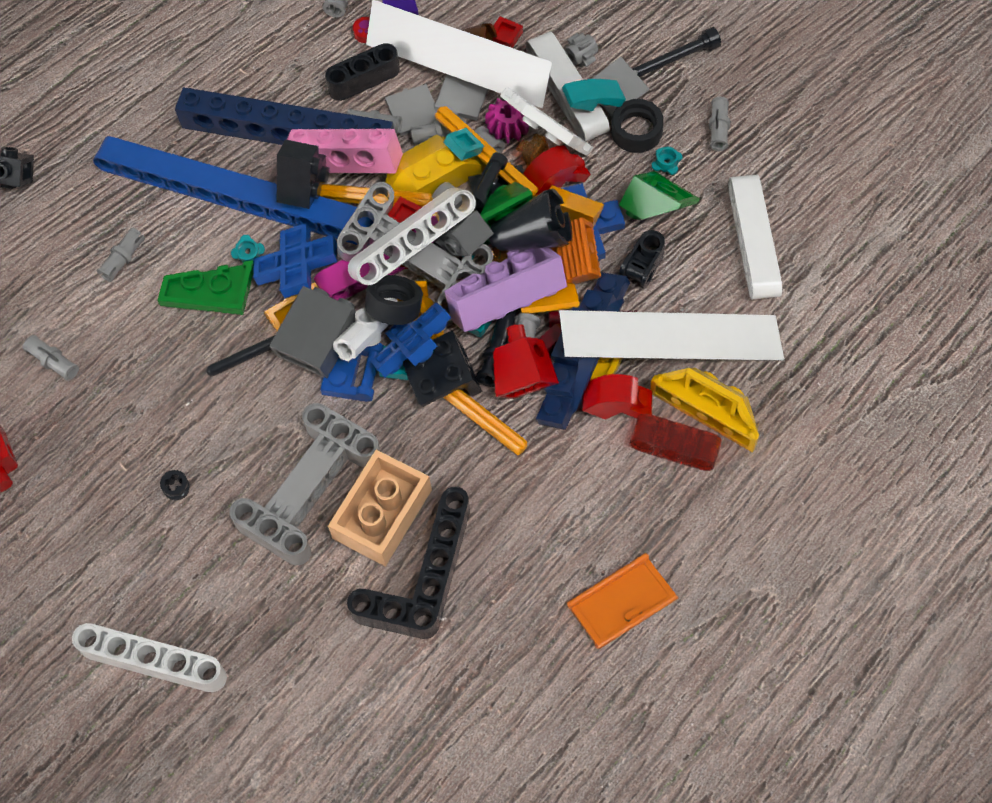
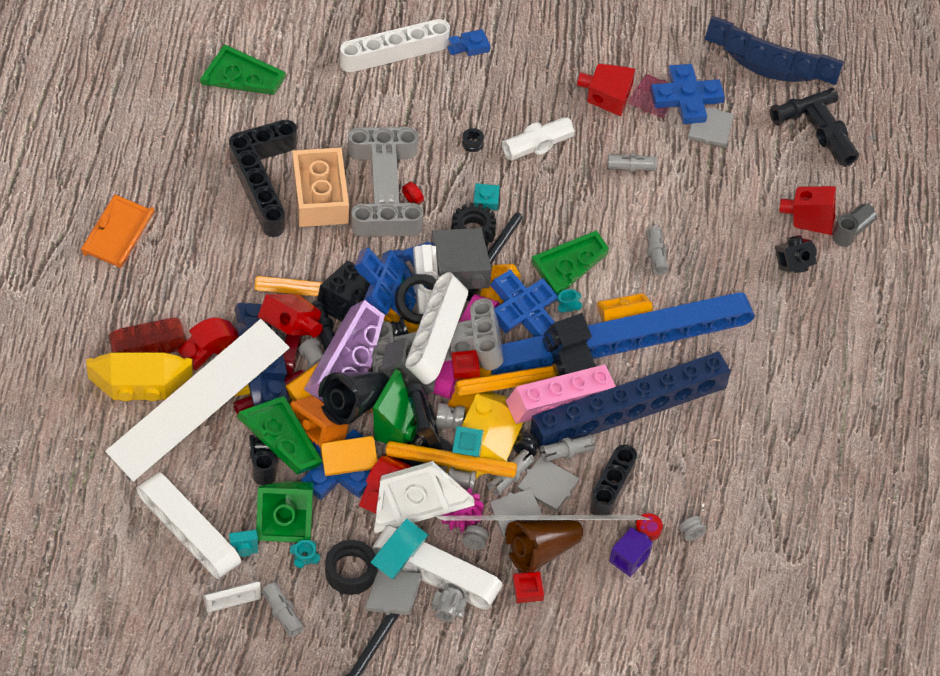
camera: 135 degrees right, 10 degrees down
(63, 613) = (472, 42): none -> blue plate
(112, 440) = (538, 138): none -> white piece
(203, 220) = (624, 306): none -> light orange slope
(220, 411) = (486, 195): none -> teal plate
(260, 365) = (476, 215): none -> black tyre
(291, 448) = (412, 193): none -> red tile
(344, 735) = (242, 72): none -> green wing
(406, 140) = (527, 442): none -> black bush
(431, 293) = (399, 327): none -> black bush
(619, 253) = (282, 432): none -> green wing
(716, 191) = (244, 542): none -> teal plate
(754, 158) = (232, 596): none -> white slope

